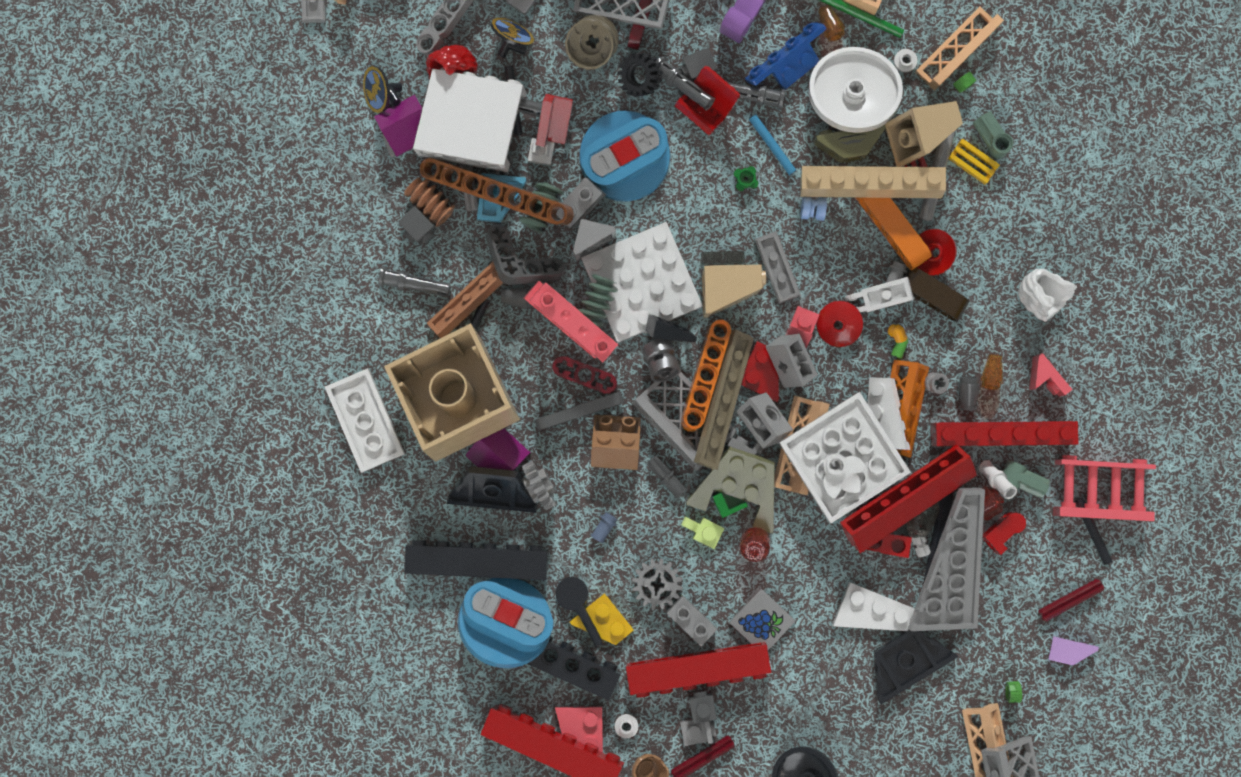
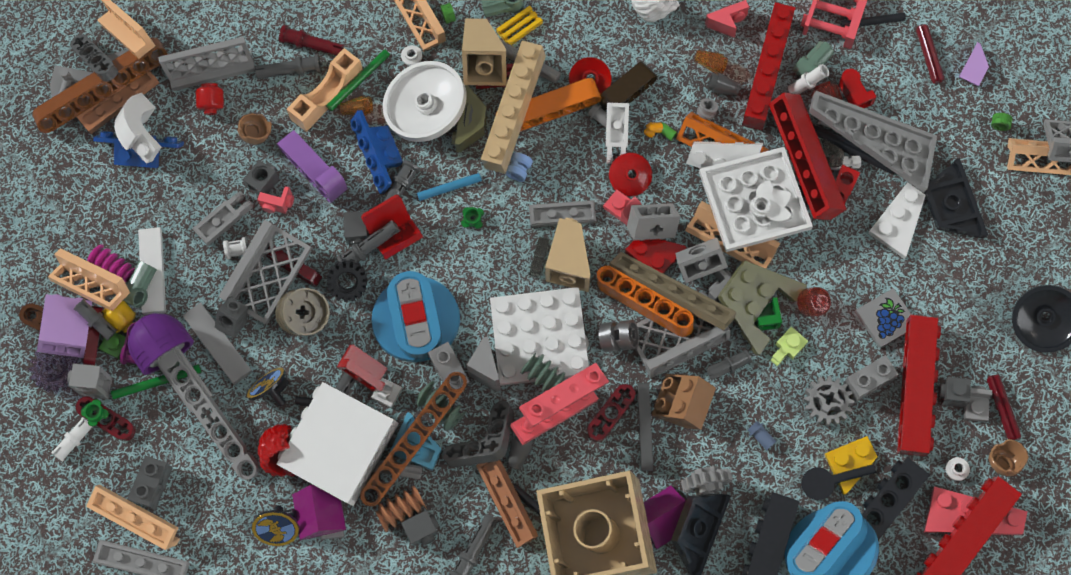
camera: 70 degrees left, 15 degrees down
(663, 329) = (591, 325): black slope -> none

